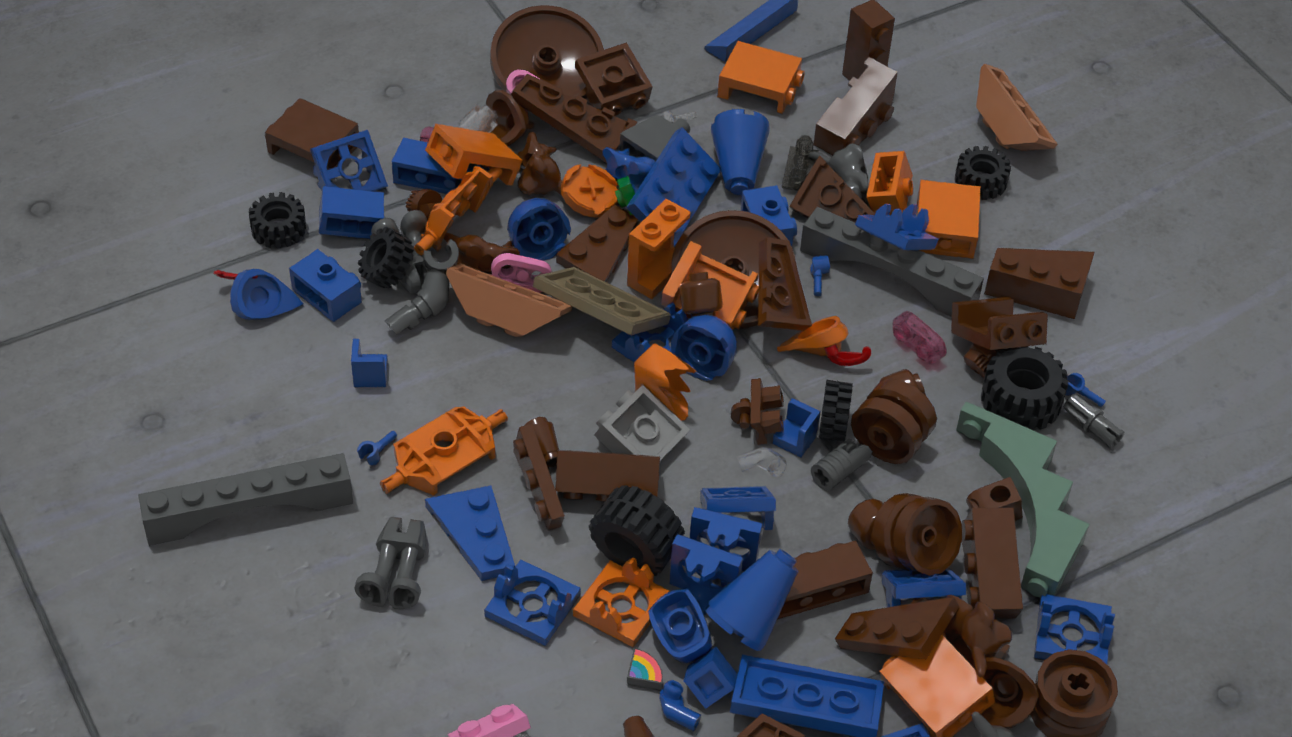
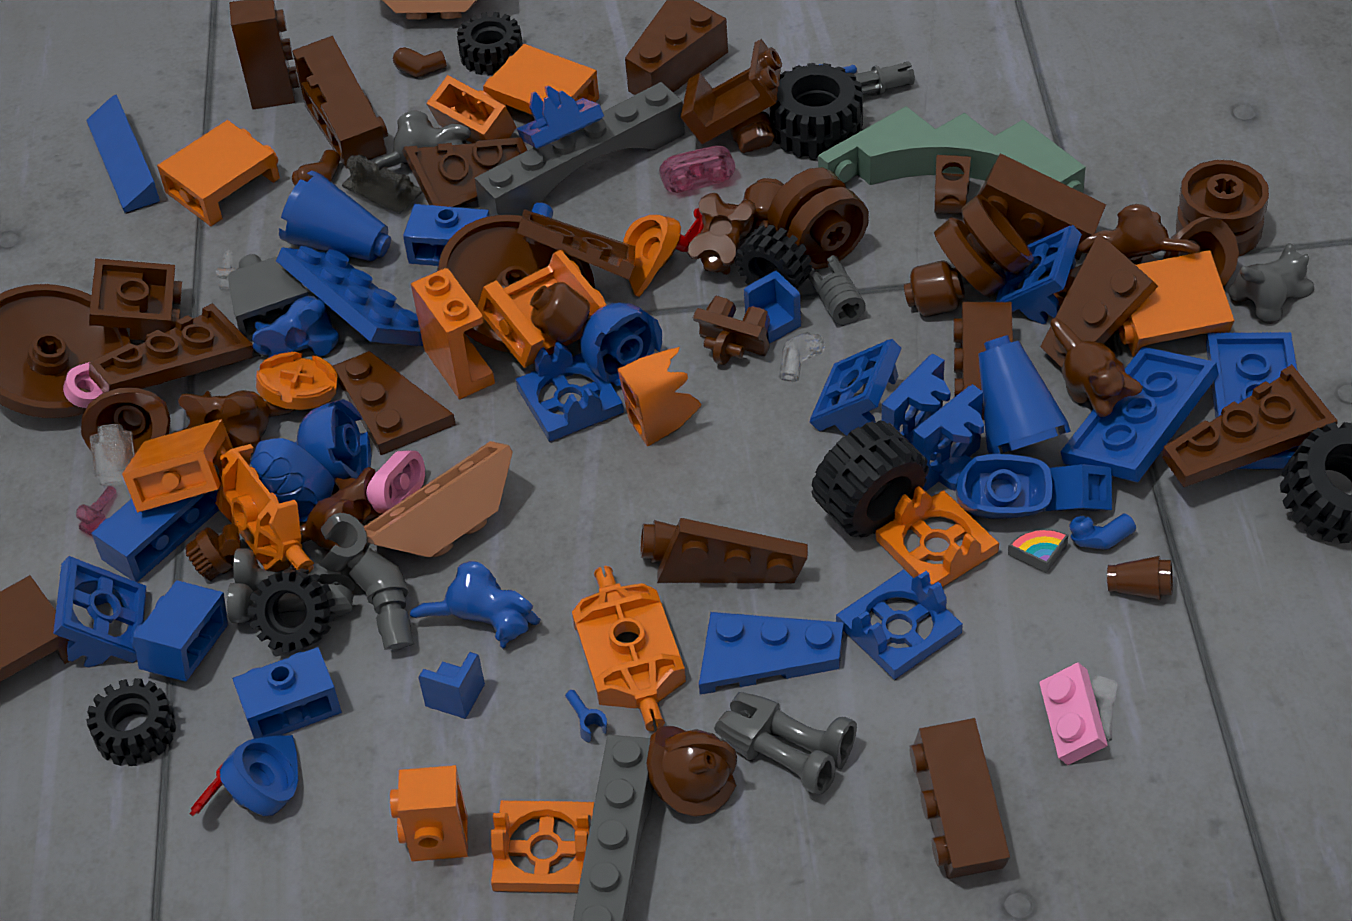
camera: 60 degrees left, 0 degrees up
(250, 386) = (431, 813): none -> orange brick
(256, 437) = (513, 814): none -> orange piece
(344, 512) = (691, 769): none -> reddish brown helmet
(375, 674) = (959, 799): none -> reddish brown wedge
(443, 355) = (478, 597): none -> blue animal
(488, 213) = (292, 474): none -> blue piece
(602, 300) = (494, 415): dark tan tile -> none
(603, 472) = (763, 482): reddish brown brick -> none
(625, 192) = (337, 342): green plate -> none
(640, 426) = (702, 443): light grey plate -> none
(792, 129) = (326, 167): none -> reddish brown arm
(830, 650) = (1093, 372): none -> reddish brown animal
(859, 367) = (721, 232): none -> reddish brown animal
(937, 143) = (416, 63): none -> reddish brown arm
(1098, 613) = (1147, 166): blue piece -> none

